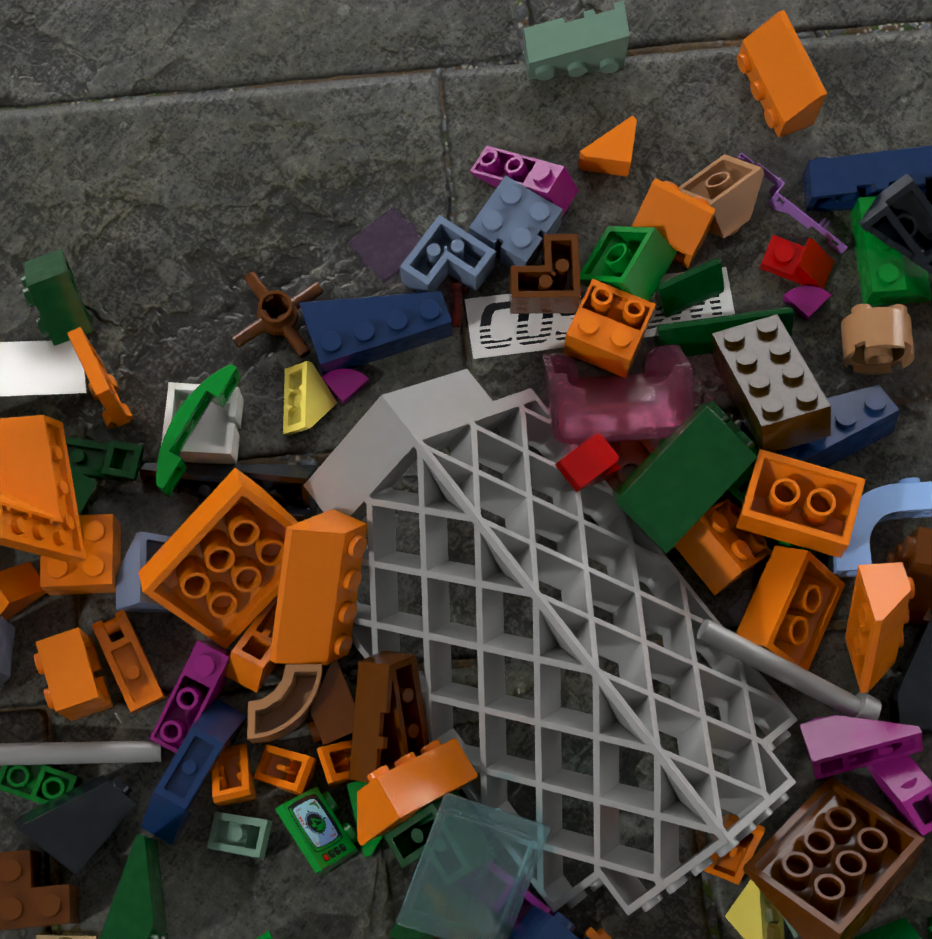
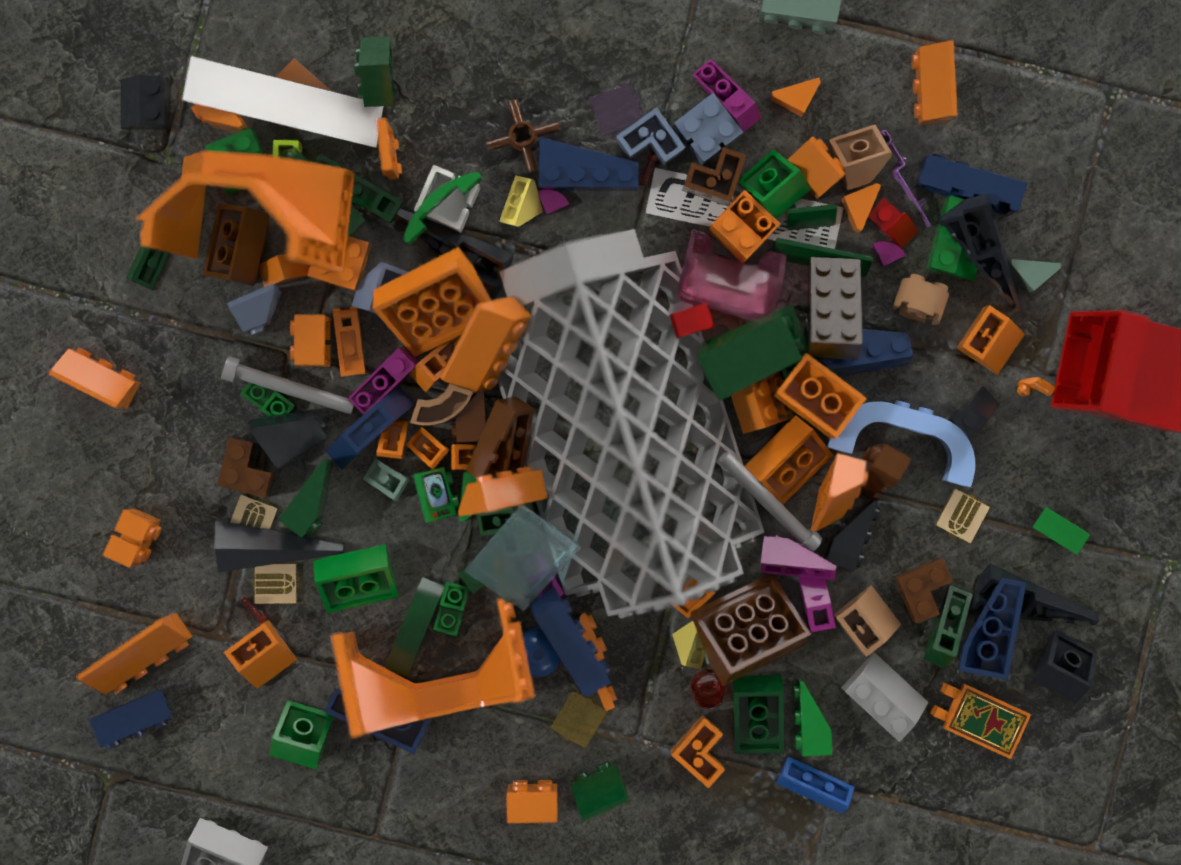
camera: 20 degrees right, 15 degrees up
(746, 254) = (859, 206): none -> orange slope

